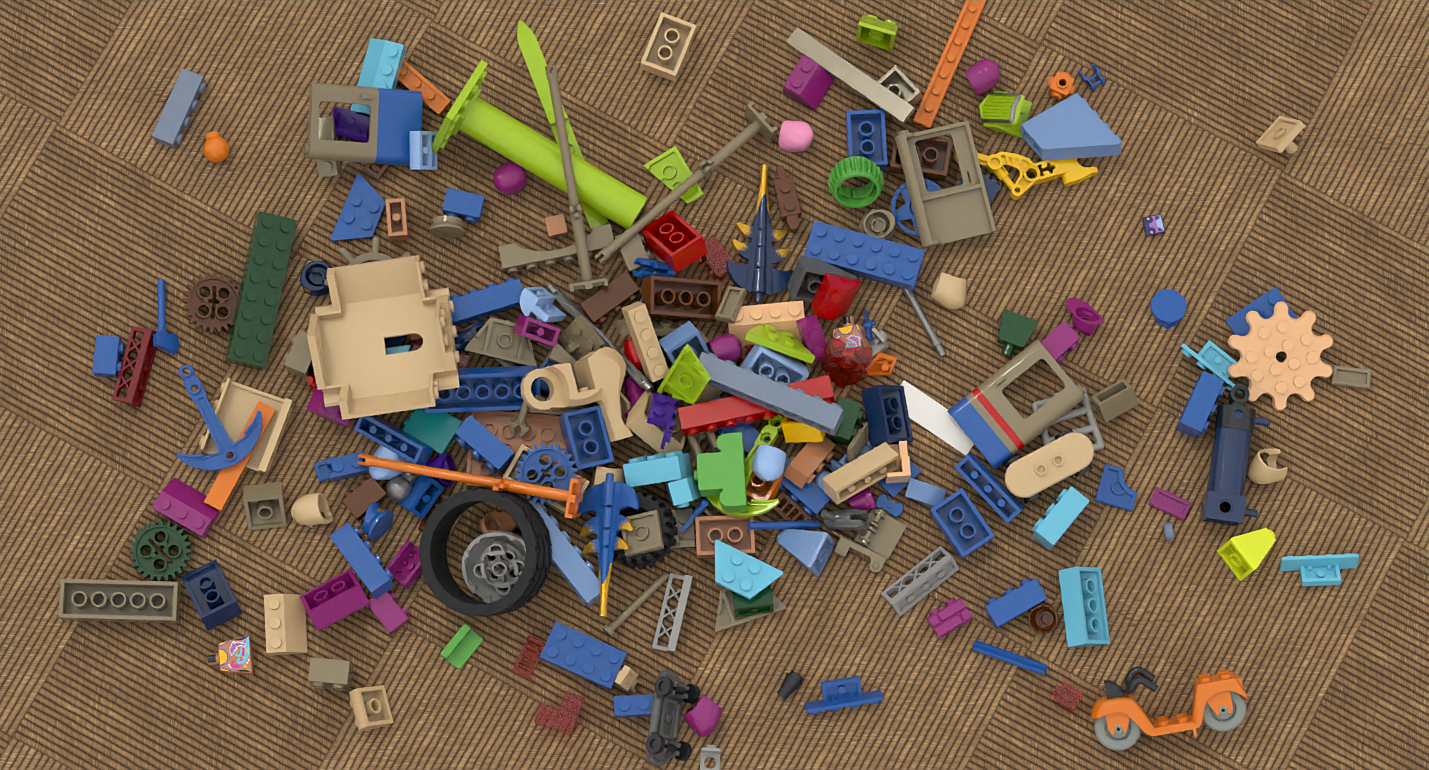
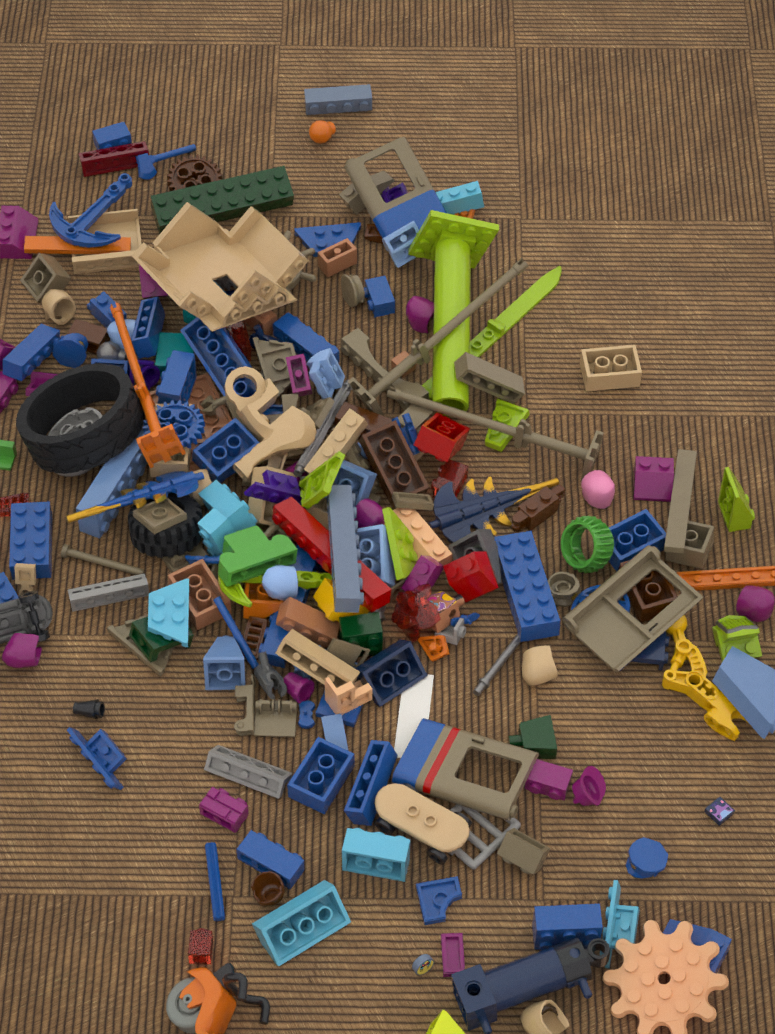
camera: 65 degrees right, 25 degrees down
(631, 162) = (489, 378): none -> dark tan brick

